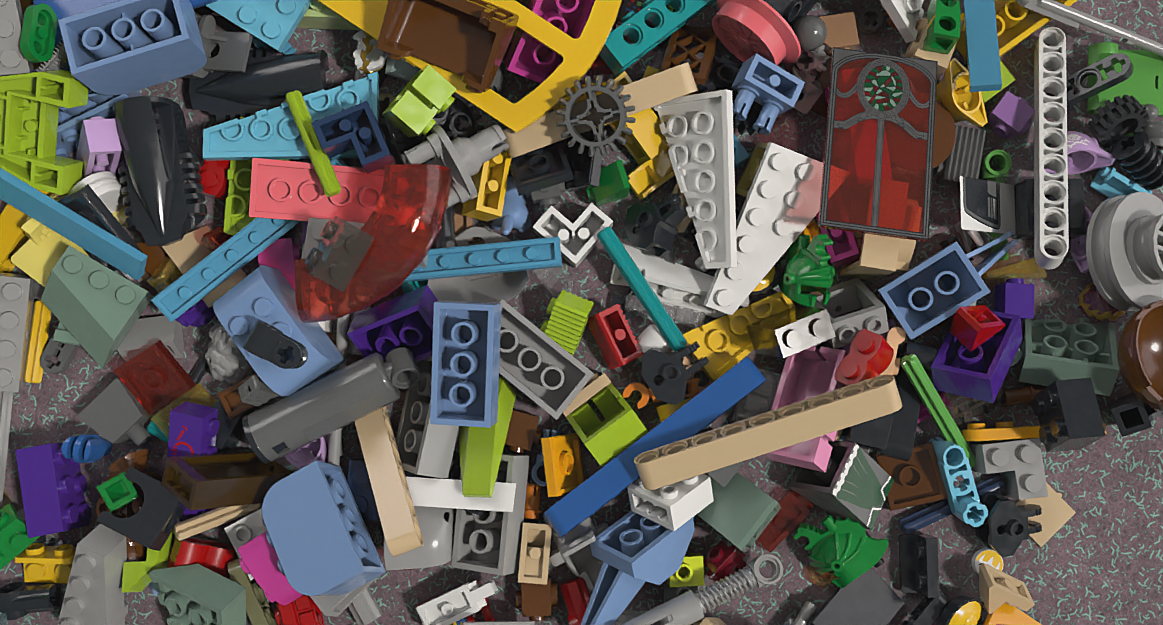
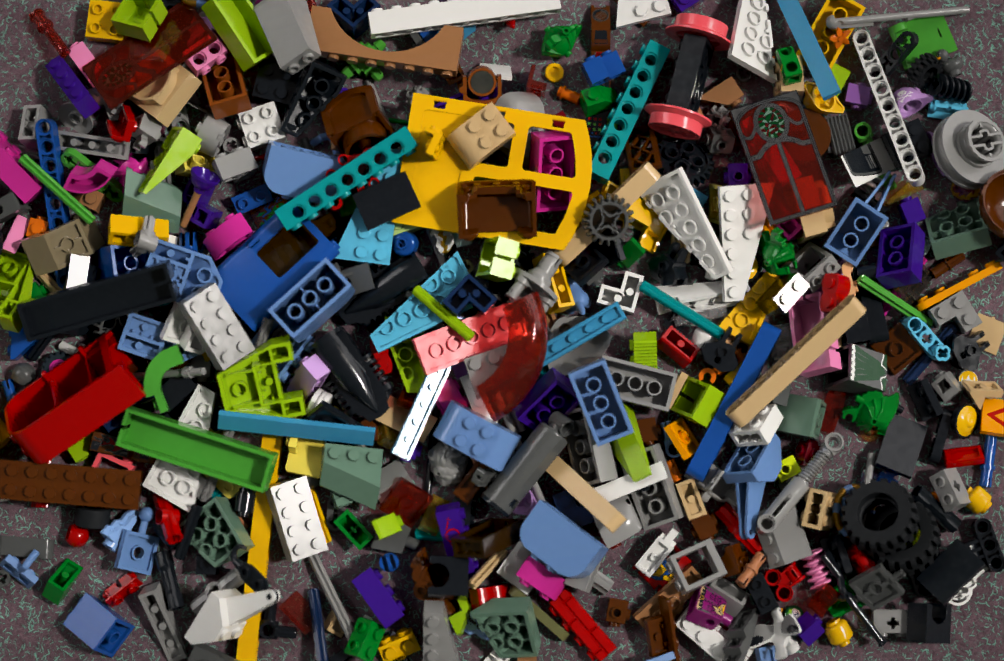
camera: 30 degrees left, 0 degrees up
(38, 33) = (251, 323): green plate -> none
(67, 380) = (353, 529): none -> green slope
(100, 397) = (388, 525): none -> lime slope
(117, 492) = (425, 576): green slope -> none
(271, 345) = (487, 441): black piece -> none
(318, 34) = (405, 243): none -> blue head
(338, 253) = (501, 370): clear smoke bracket -> none
(767, 85) = (700, 151): medium blue brick -> none
(802, 141) = (739, 170): none -> dark purple brick
(810, 32) = (710, 104): dark grey piece -> none
(950, 566) = (945, 392): none -> light grey brick
(975, 325) = (890, 240): red slope -> none
(1027, 21) = (840, 37): none -> orange plant
(1068, 415) = (969, 269): black brick -> none

